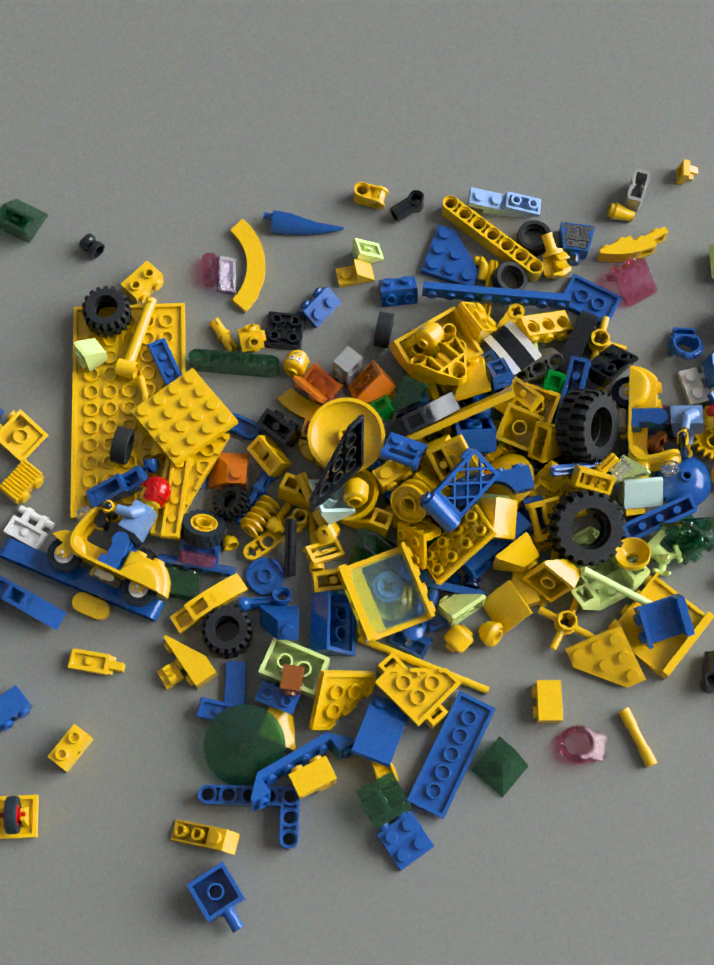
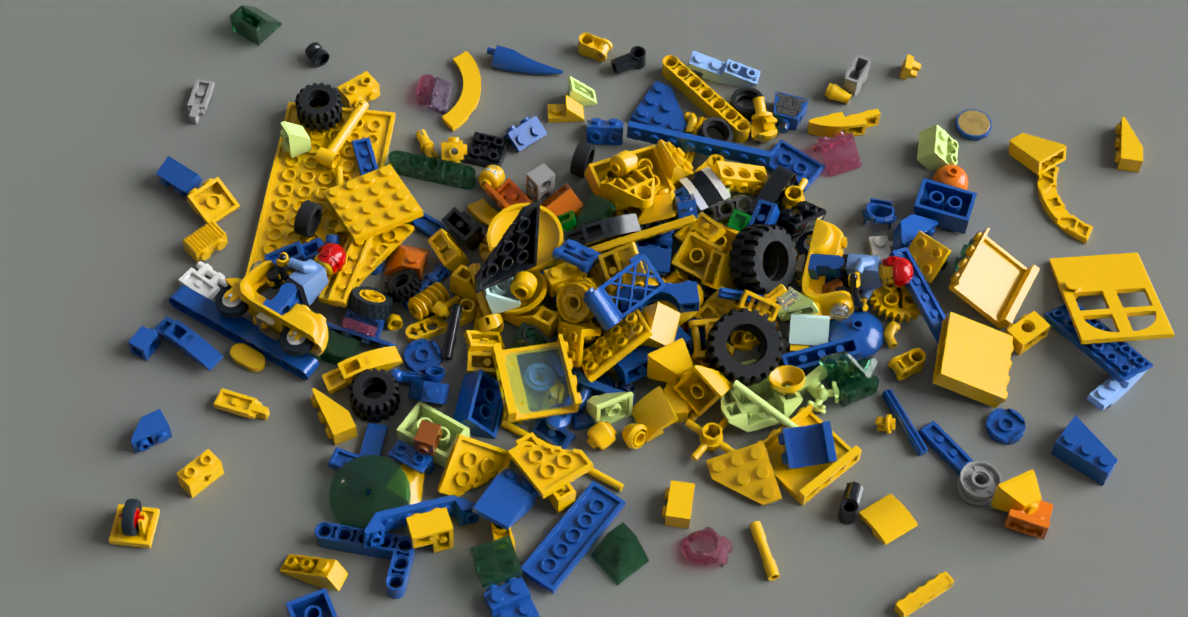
camera: 10 degrees right, 15 degrees down
(170, 675) = (311, 427): yellow tile -> none

